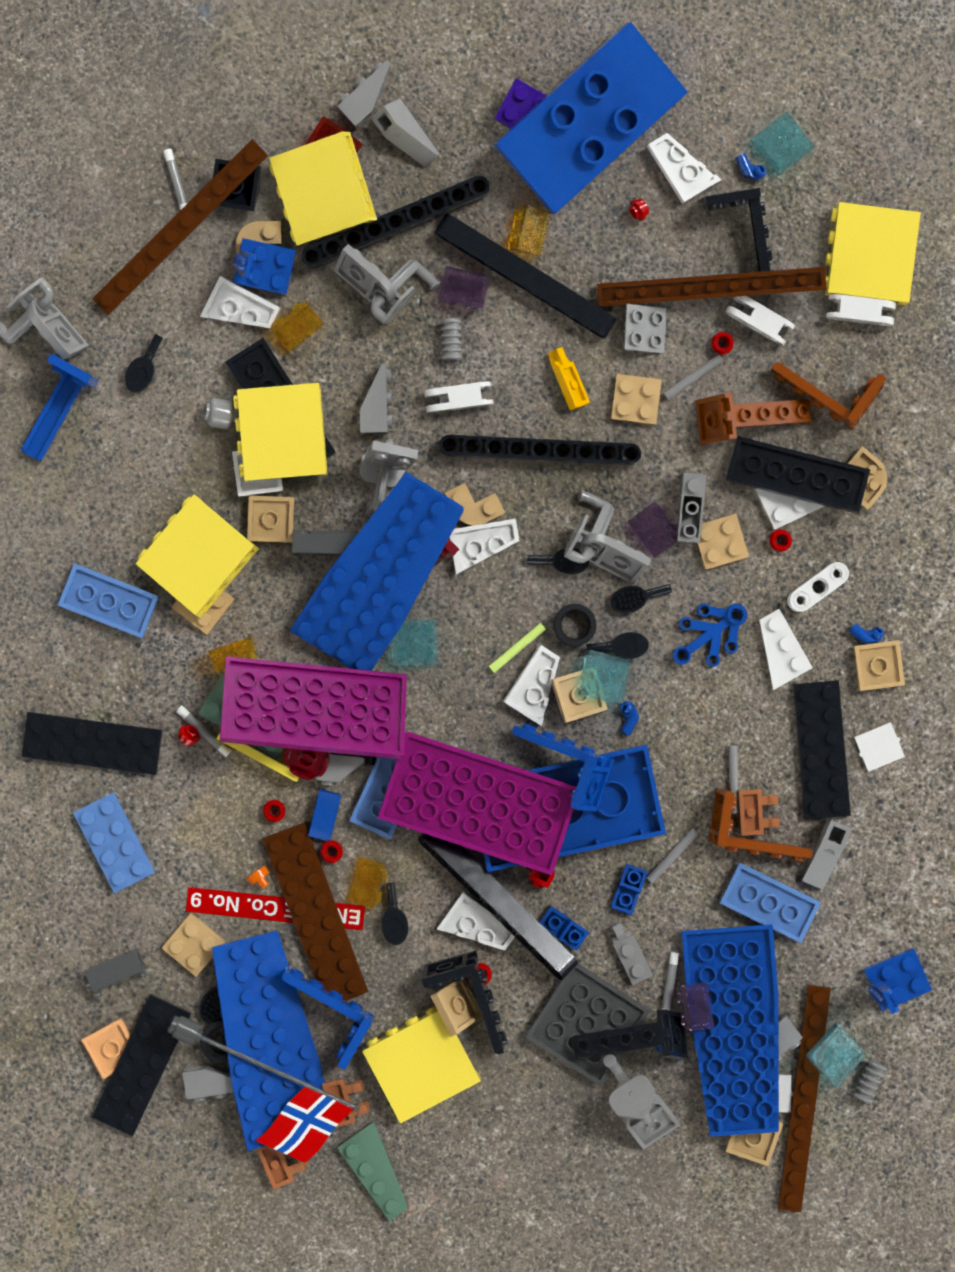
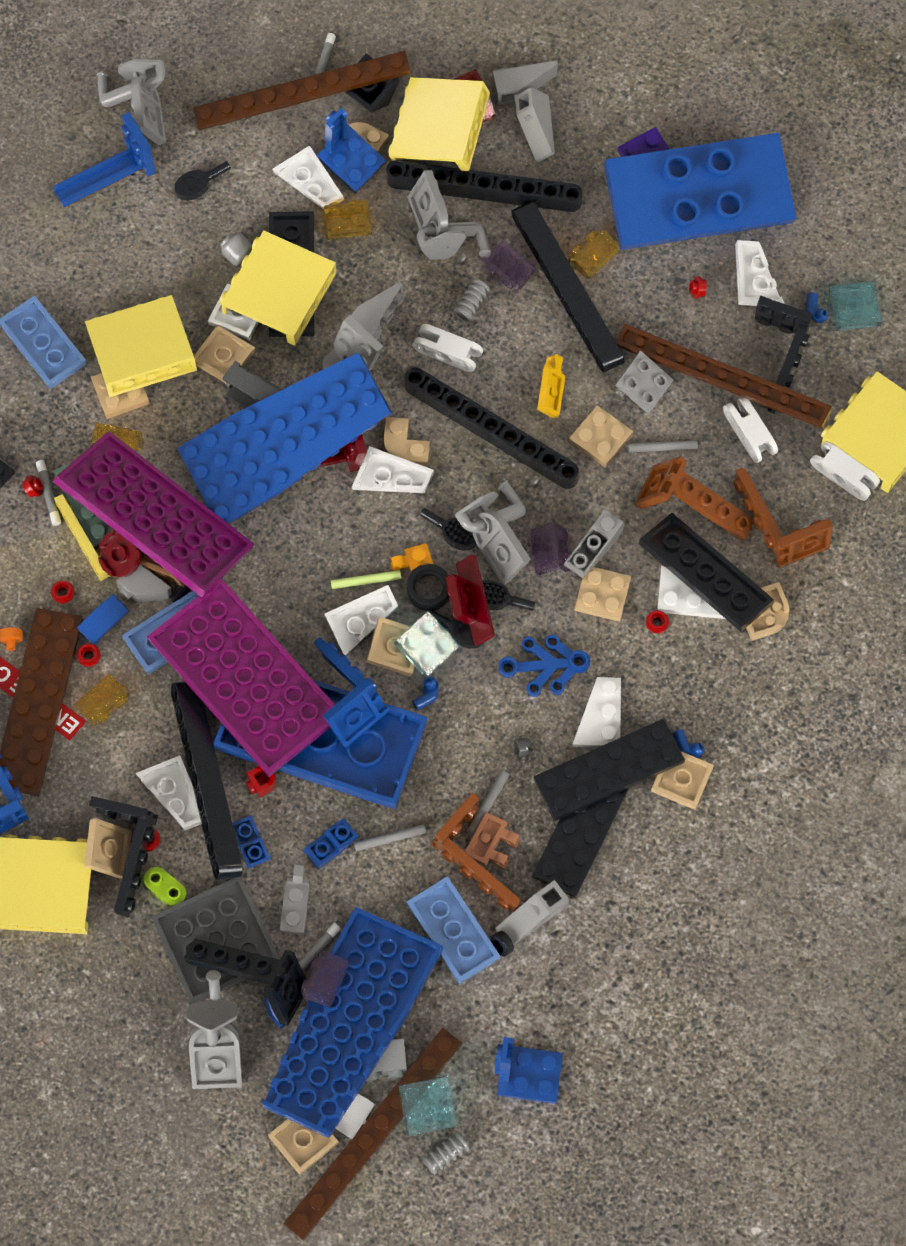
camera: 30 degrees right, 20 degrees down
(394, 920) = (103, 746): black piece -> none
(415, 643) = (279, 523): clear light blue plate -> none
(519, 1003) = (164, 886): none -> lime plate
(547, 605) = (413, 558): none -> light orange plate
(617, 618) = (469, 599): none -> dark red bracket
(722, 336) = (708, 427): red plate -> none
(734, 716) = (521, 747): none -> dark grey hinge
(815, 890) = (502, 943): none -> black tile
(817, 696) = (609, 769): none -> black plate
(829, 583) = (656, 685): white piece -> none
(879, 746) = (640, 852): white piece -> none

